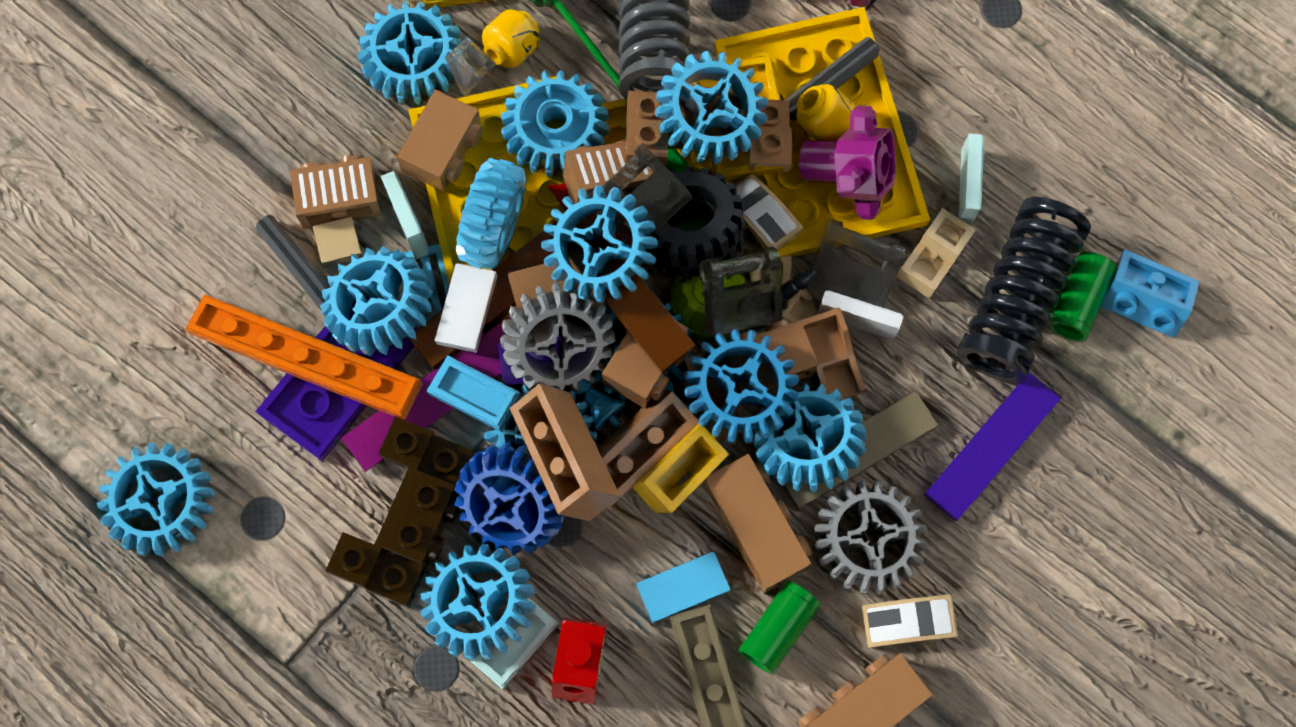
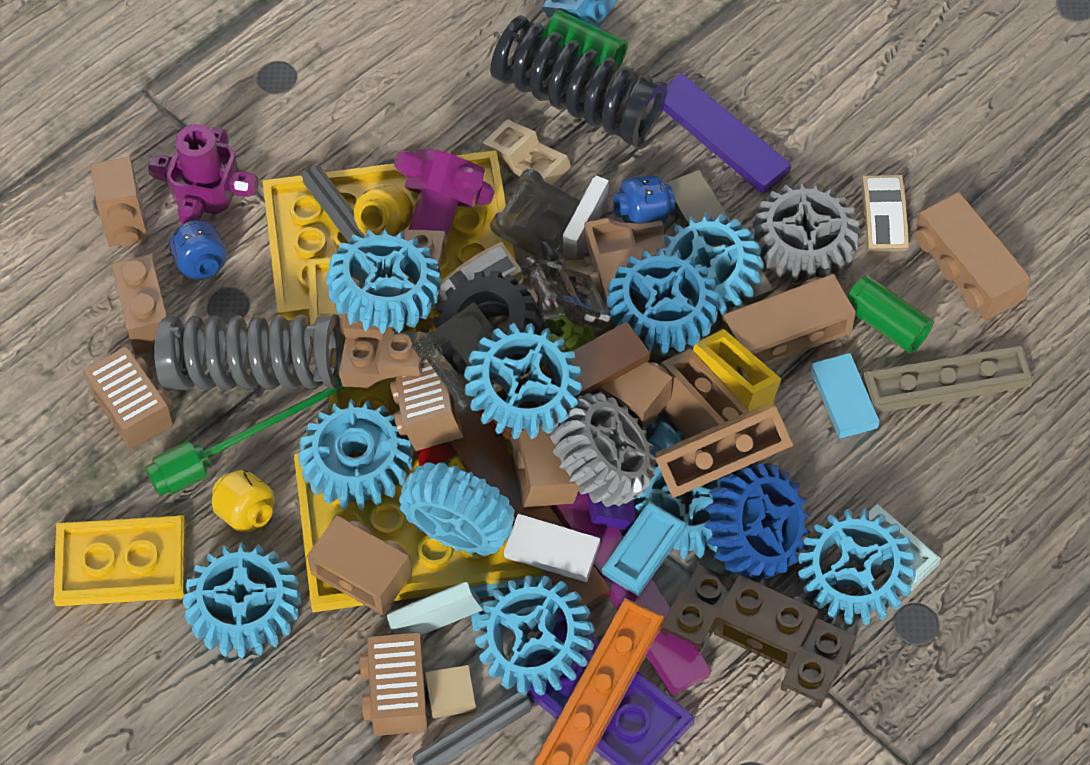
camera: 80 degrees left, 15 degrees down
(469, 65) = (273, 535): clear slope -> none
(578, 660) = (915, 479): red torso -> none
(887, 370) = (644, 200): none -> blue head
(971, 178) = (456, 114): light aqua tile -> none

